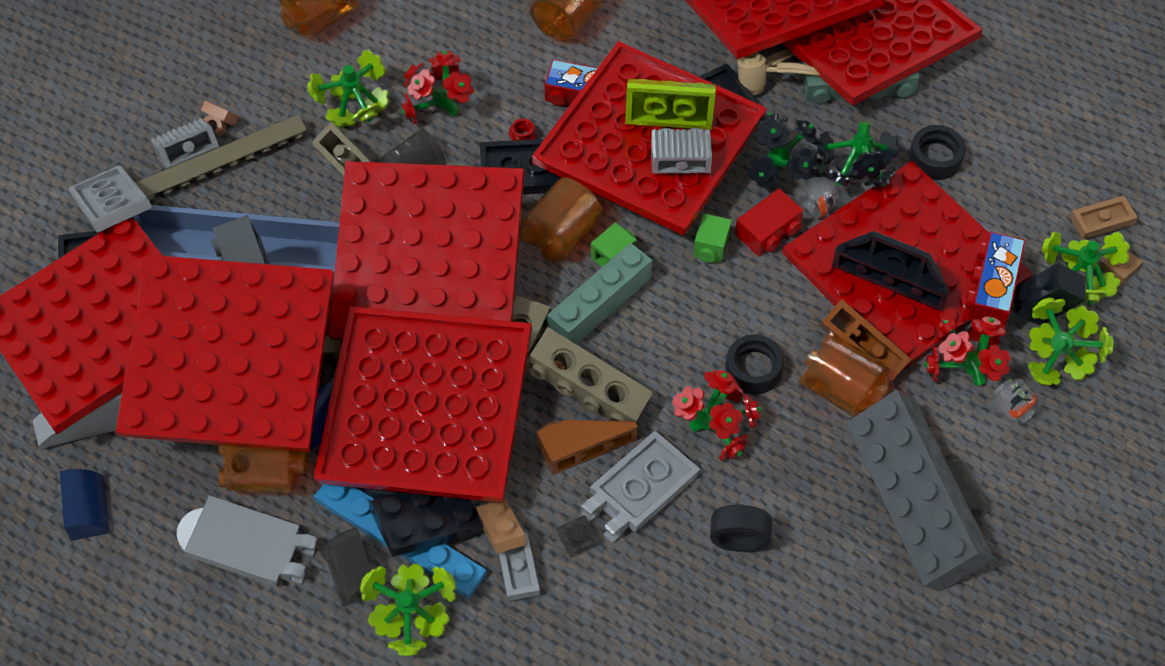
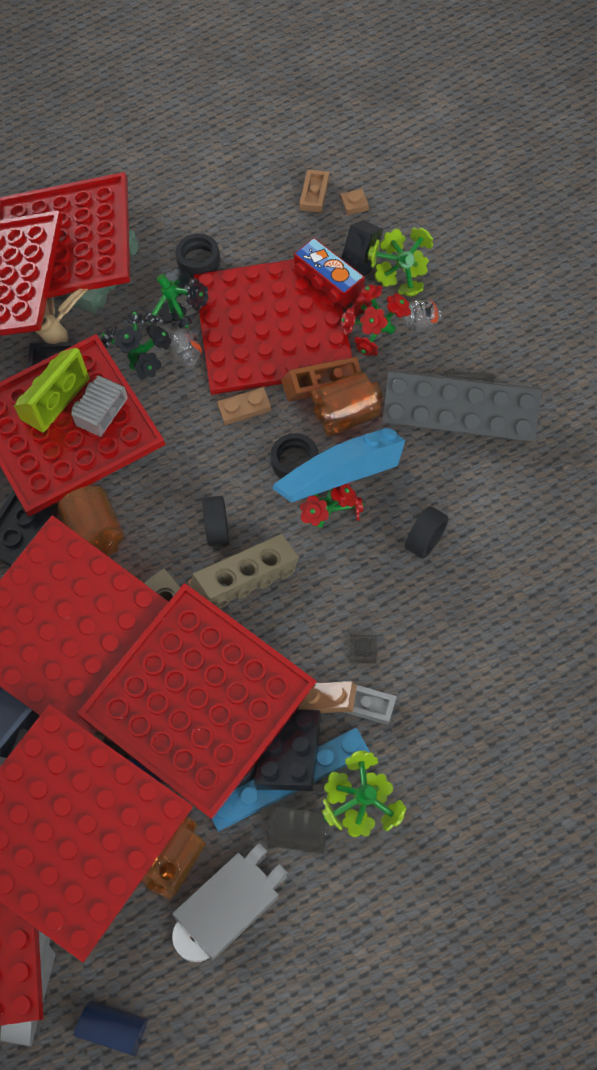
camera: 55 degrees left, 5 degrees up
(578, 441) = (286, 608): dark orange slope -> none
(601, 294) = (173, 530): sand green brick -> none
(610, 244) = (137, 501): bright green brick -> none
(631, 325) = (215, 520): none -> black tyre
(639, 486) = (347, 584): light grey tile -> none
(712, 238) = (174, 430): bright green brick -> none
(756, 401) = (343, 464): none -> dark azure wedge
(769, 223) = (184, 387): red brick -> none
(787, 288) = (244, 406): none -> medium nougat plate
(893, 267) = (283, 325): black wedge -> none
(1085, 257) = (338, 219): lime plant -> none

